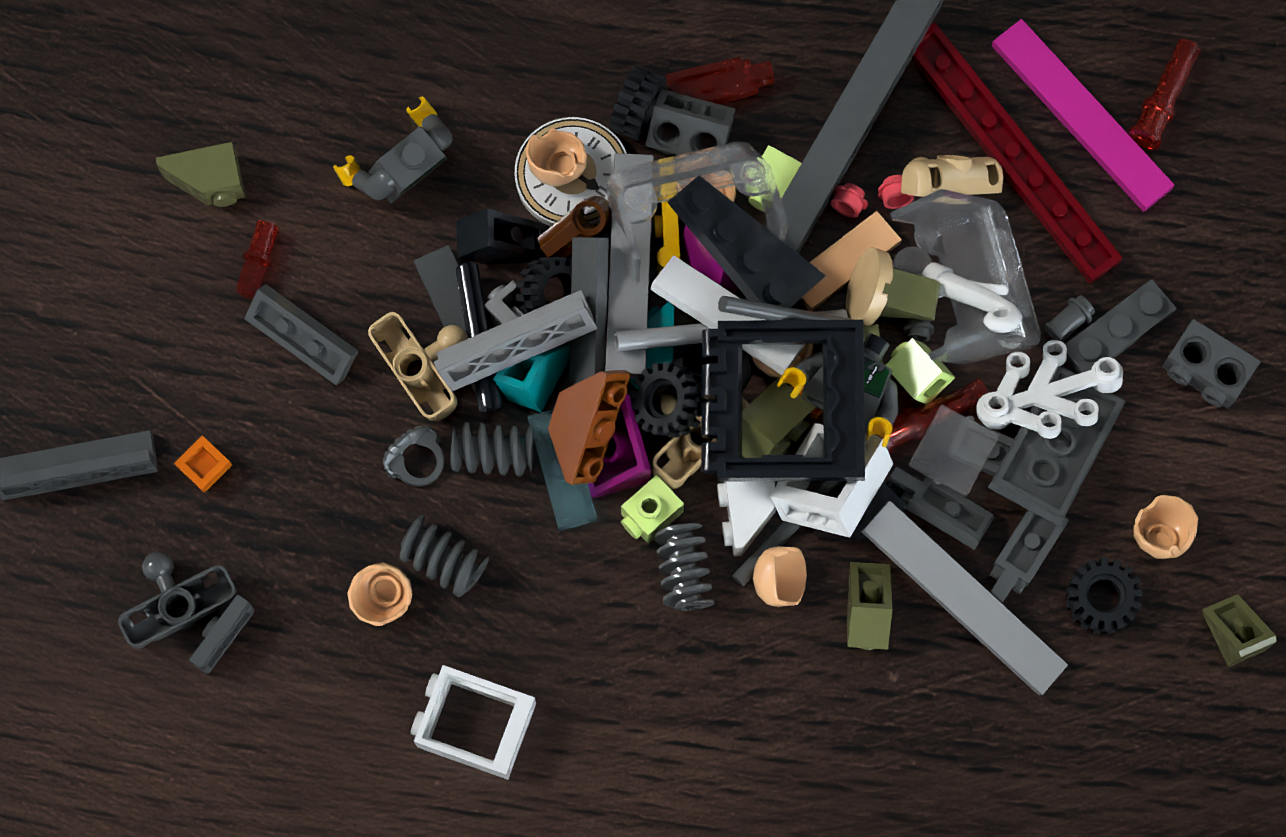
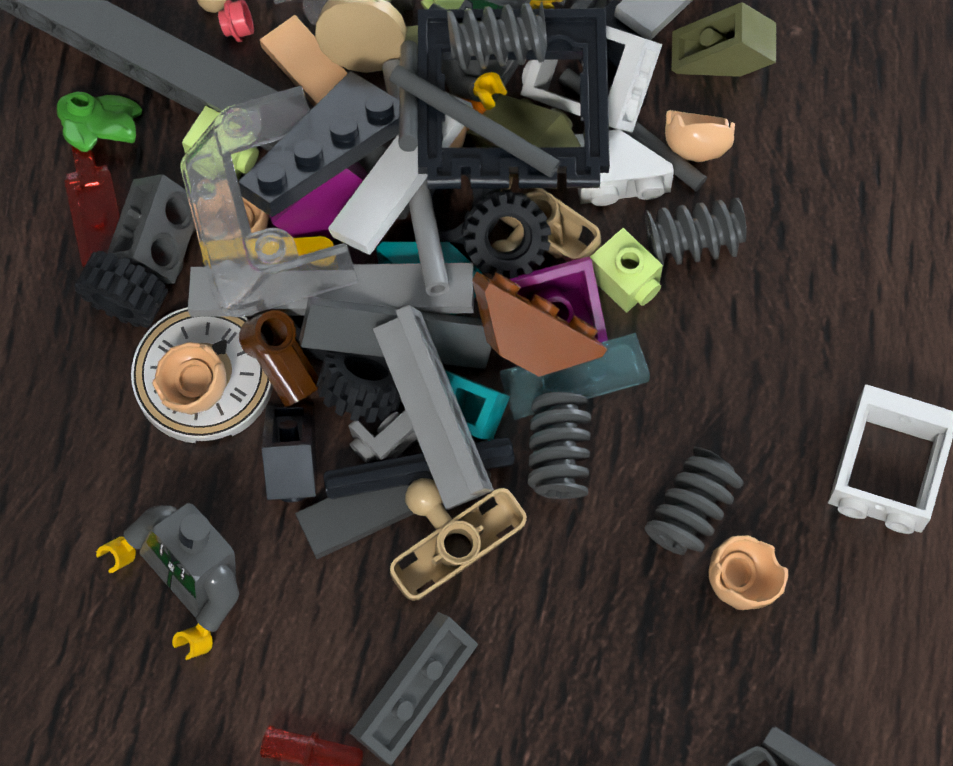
camera: 90 degrees left, 5 degrees down
(394, 459) = (578, 566): dark grey piece -> none
(755, 364) = (475, 121): none -> dark grey bar
(796, 84) = (91, 118): none -> bright green plate
(823, 379) = (497, 35): none -> dark grey piece
(849, 200) = (248, 62): coral plate -> none

